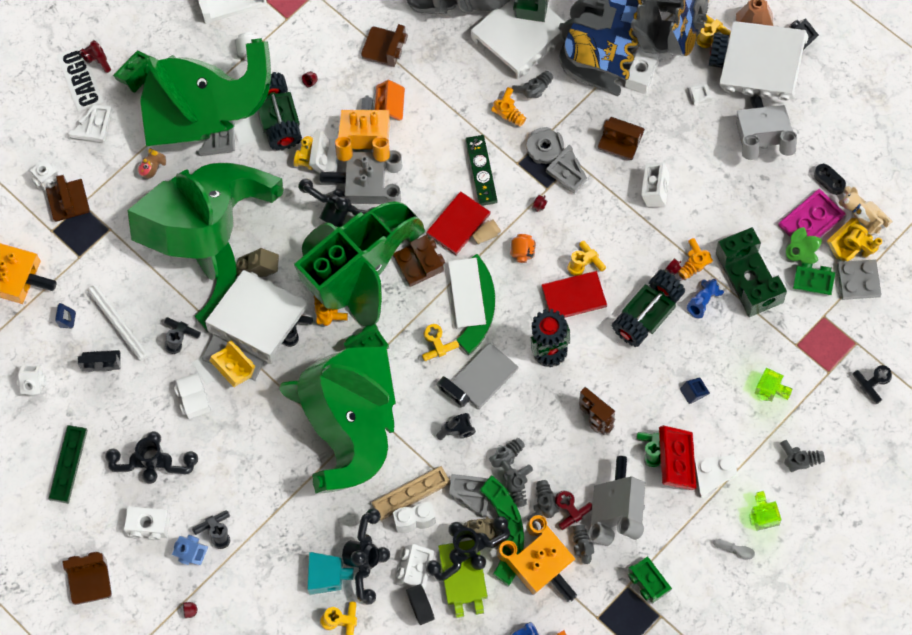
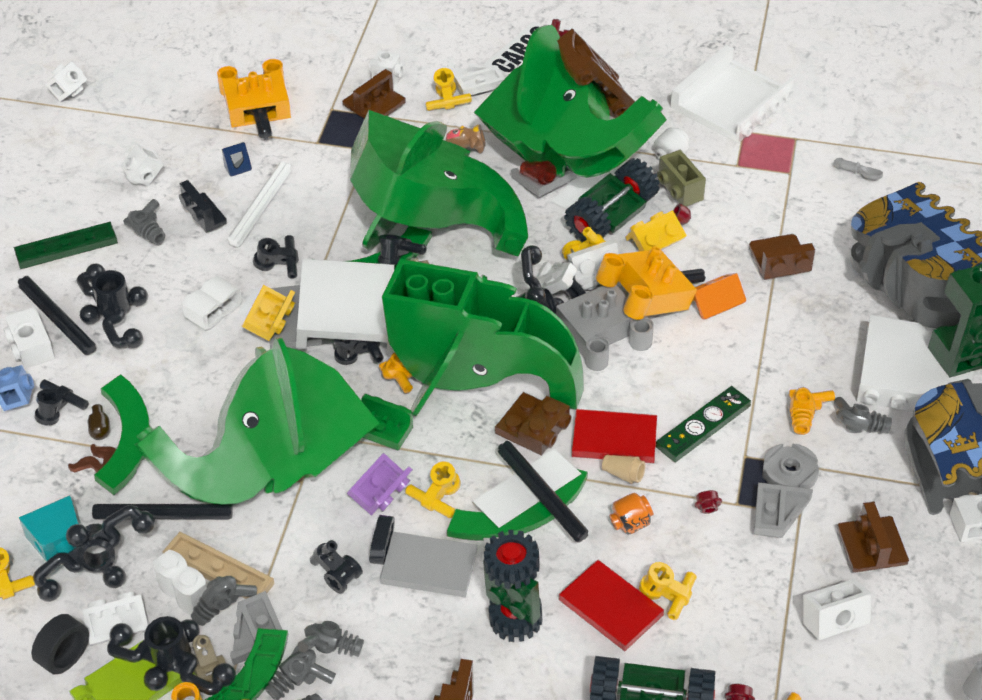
camera: 55 degrees right, 20 degrees down
(85, 404) = (144, 223): none -> dark grey piece
(102, 153) = (446, 88): none -> yellow piece
(133, 497) = (57, 315): none -> black axle
(191, 57) = (587, 65): none -> reddish brown piece
(221, 138) = (540, 171): none -> clear red cone
(228, 260) = (394, 246): none -> black piece
(251, 511) = (98, 423): none -> dark brown cylinder
(273, 493) = (134, 420): none -> green tile
(283, 517) = (104, 452): none -> copper piece
(287, 59) = (681, 178): none -> olive brick
(316, 102) = (659, 232): none -> yellow bracket
(323, 181) = (557, 276): none -> white wing
(343, 513) = (170, 511): none -> black axle
(412, 371) = (378, 483): none -> medium lavender bracket
(442, 502) = (219, 596): none -> dark grey piece
(478, 285) = (543, 491): none -> black axle

